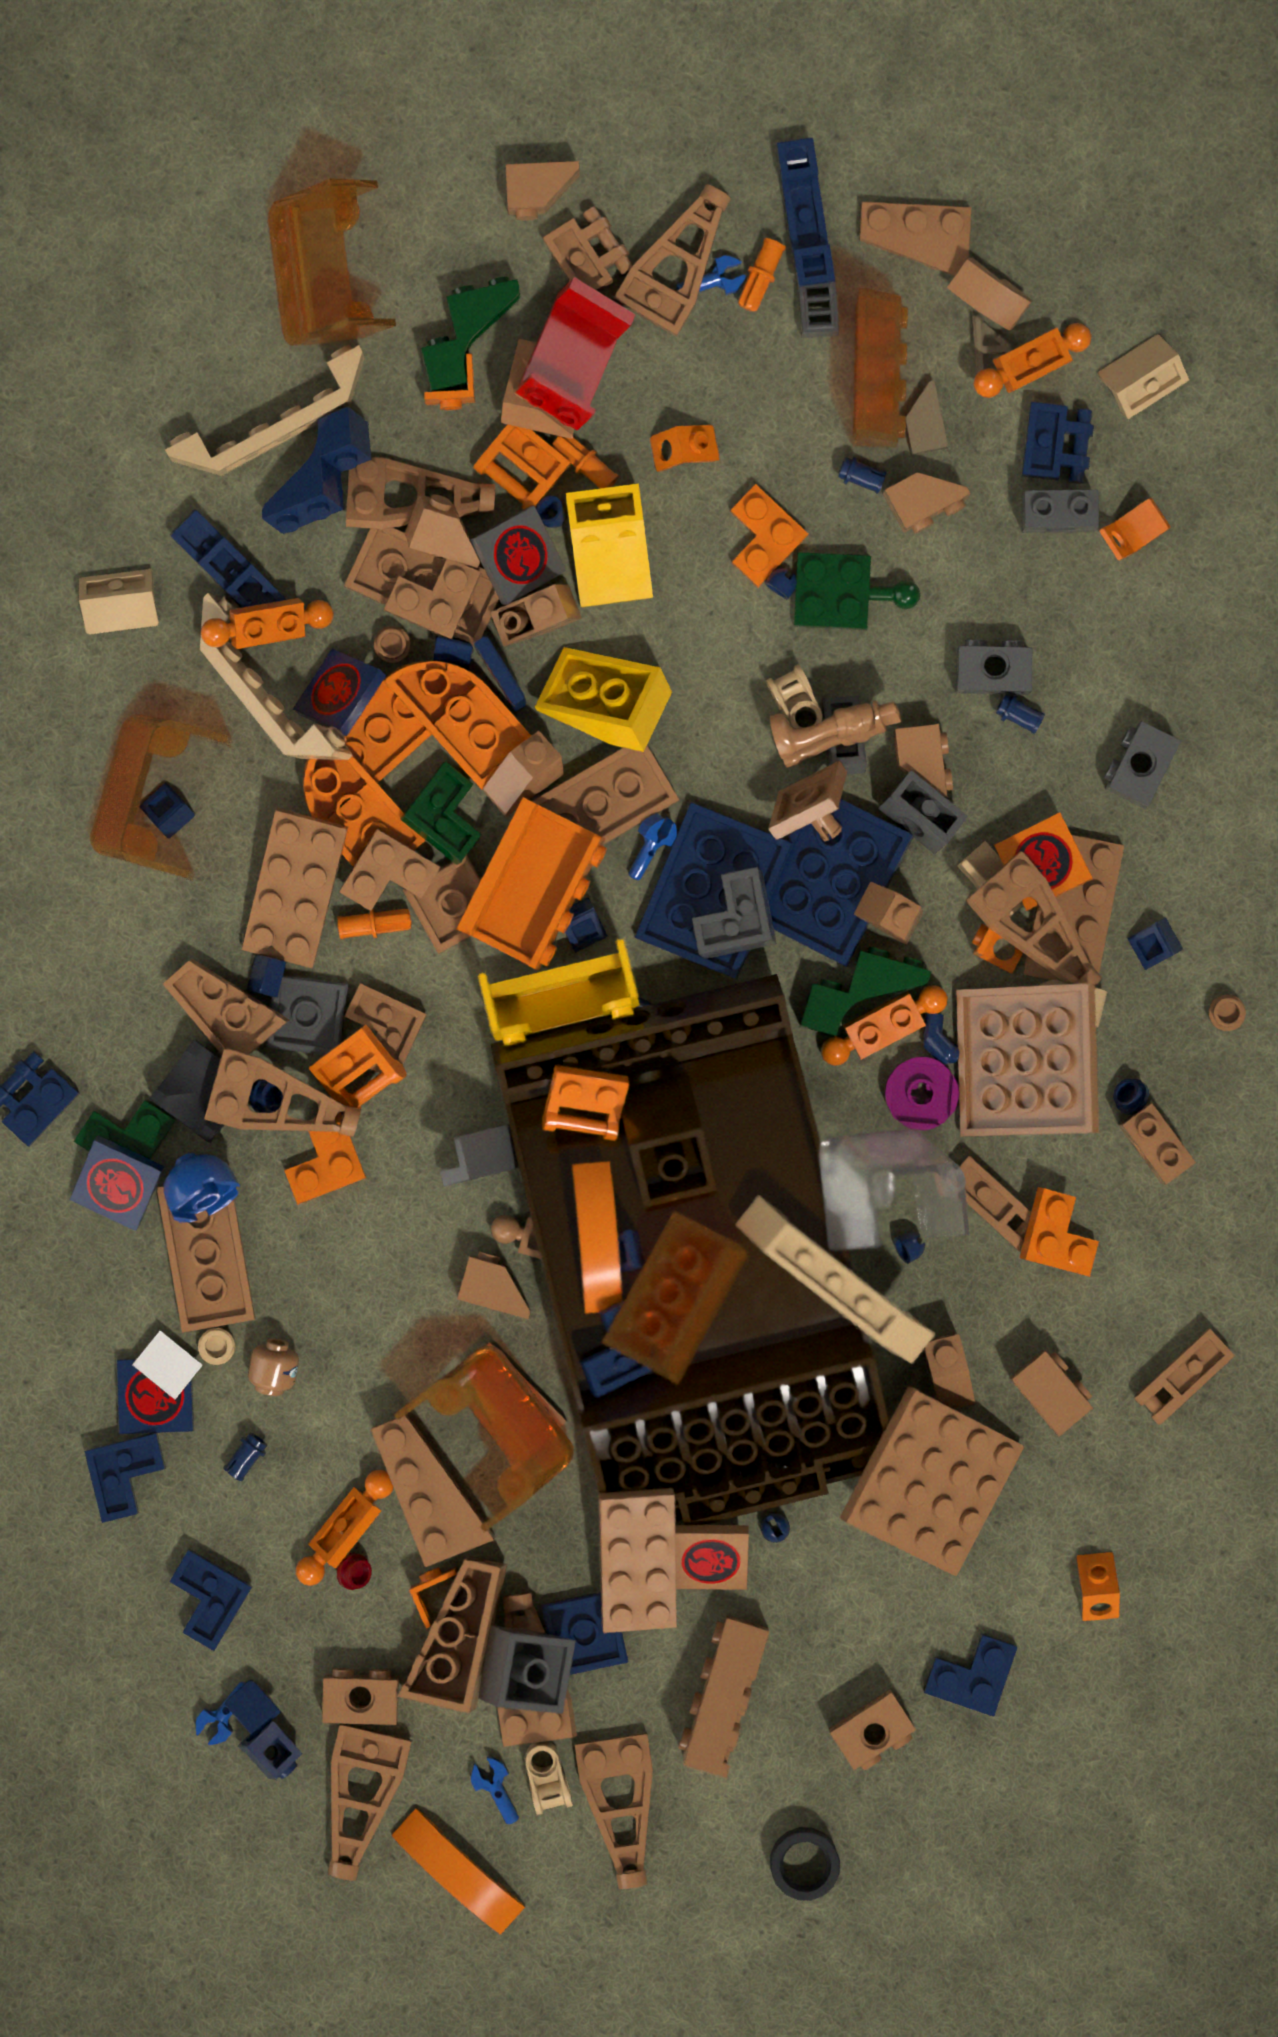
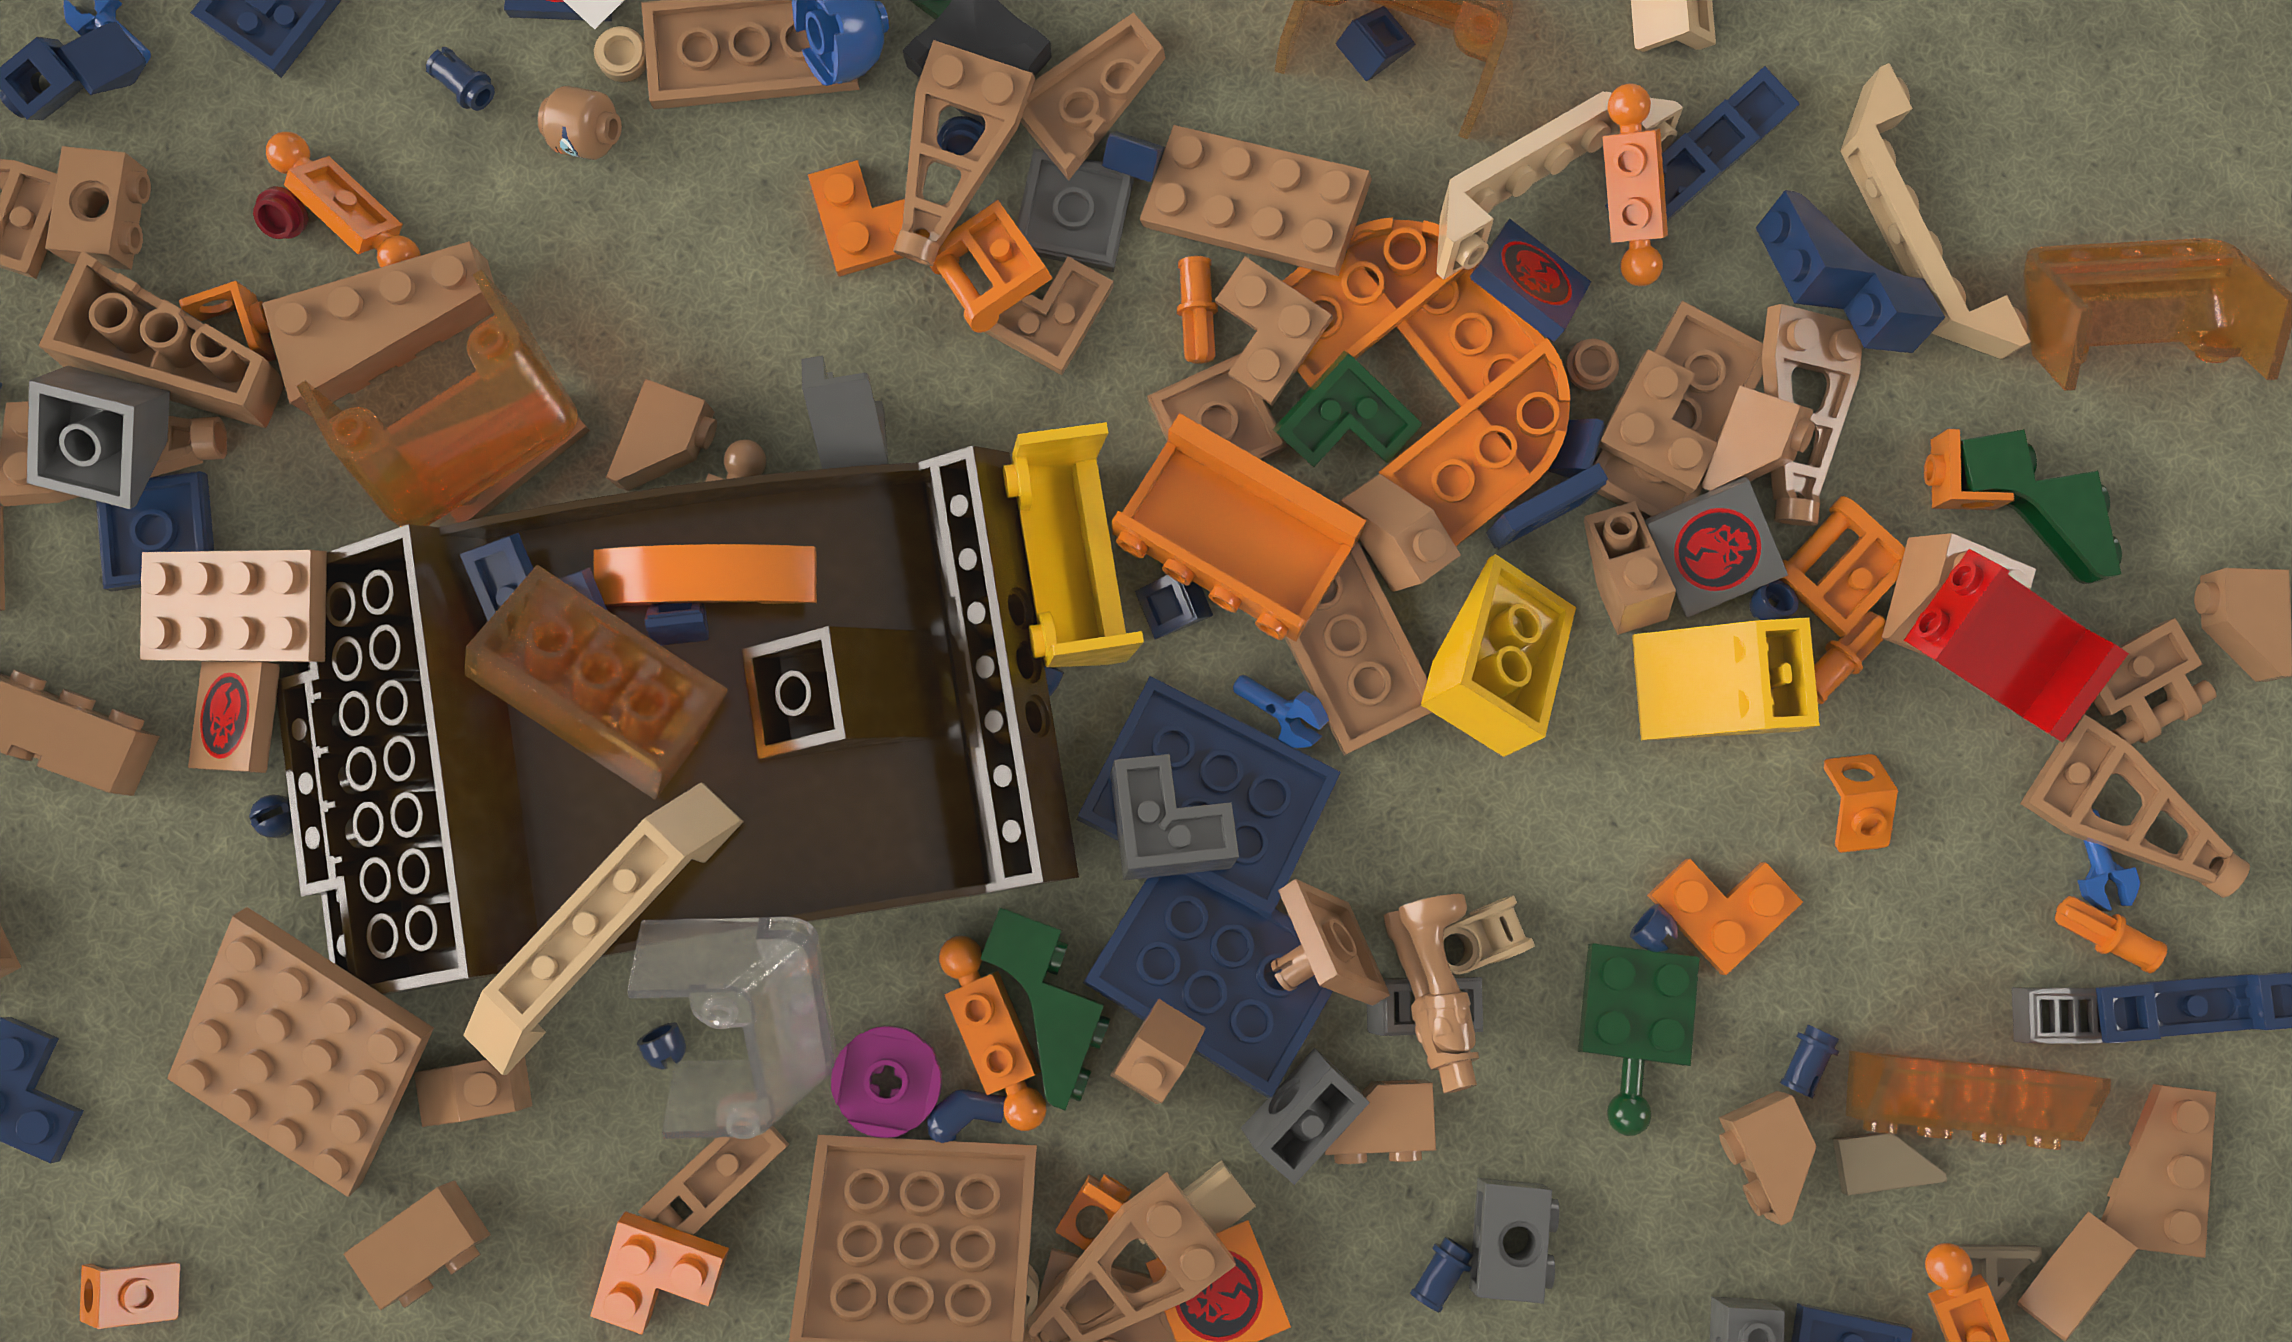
camera: 90 degrees right, 5 degrees down
(589, 1092) = (923, 579): orange plate -> none

